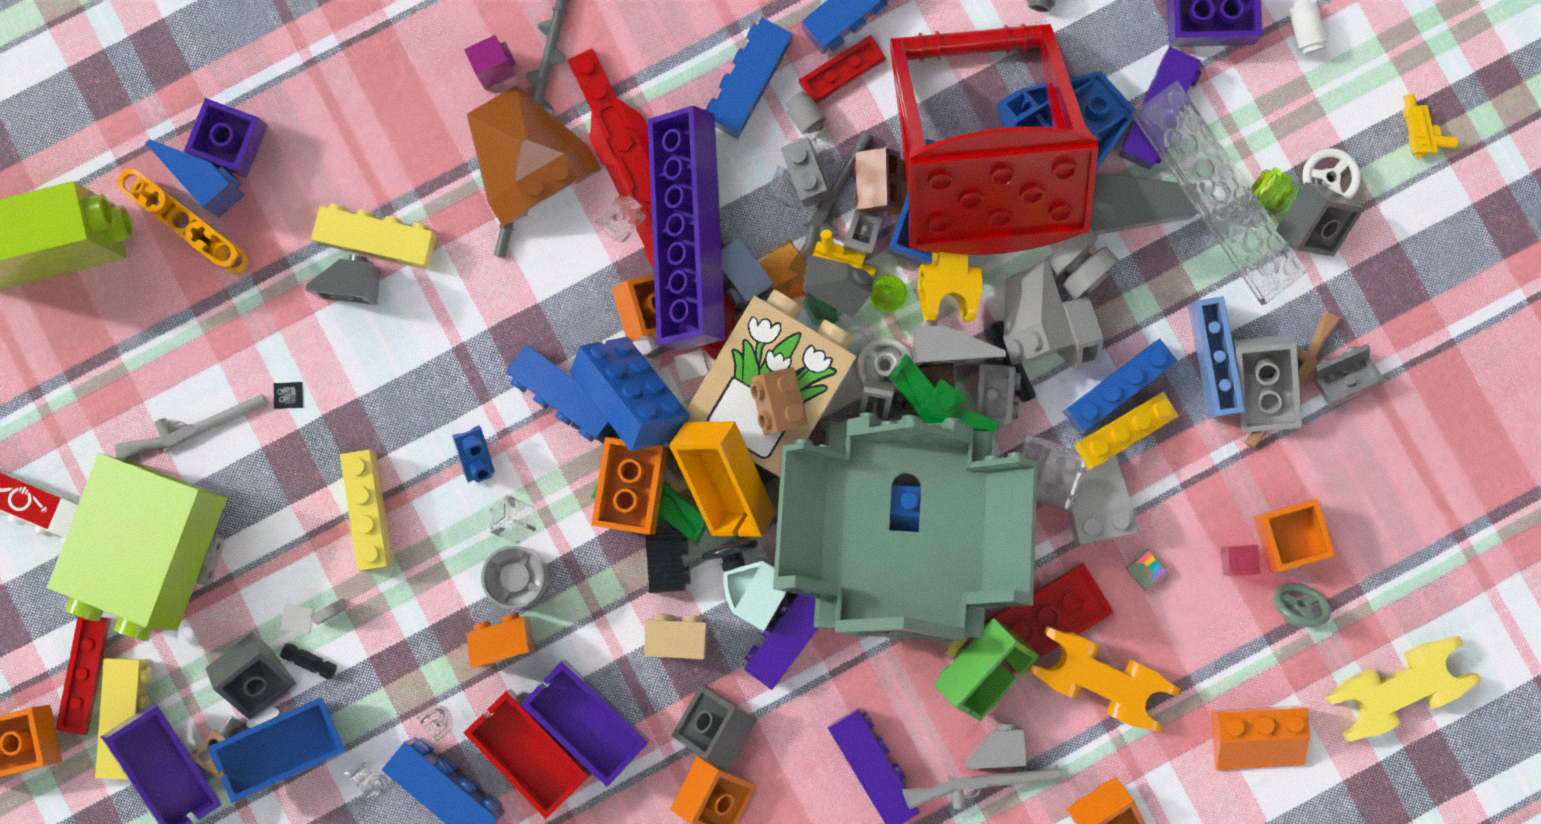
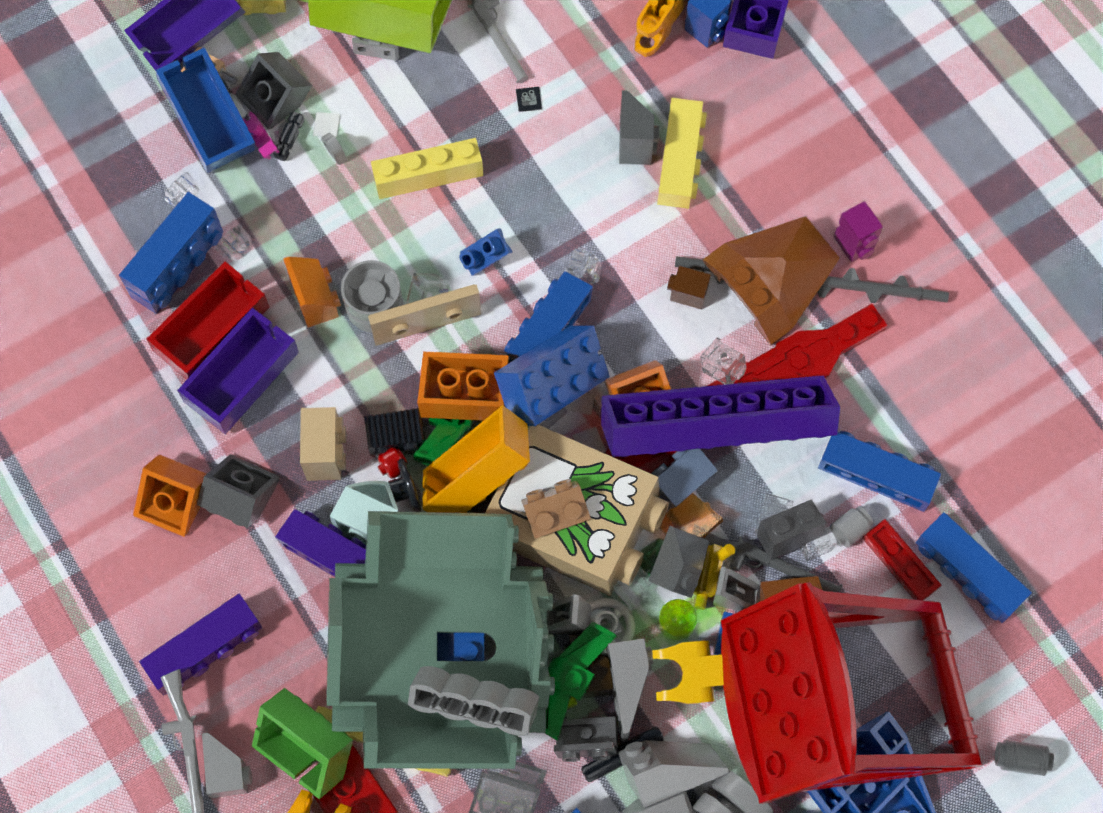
camera: 80 degrees right, 15 degrees down
(308, 691) = (261, 137): none -> dark pink piece
(496, 352) = (585, 266): none -> clear piece
(532, 245) = (689, 287): none -> reddish brown brick
(537, 495) = (425, 314): none -> tan plate
(698, 568) = (388, 463): none -> red piece
(971, 494) = (465, 698): none -> light grey brick

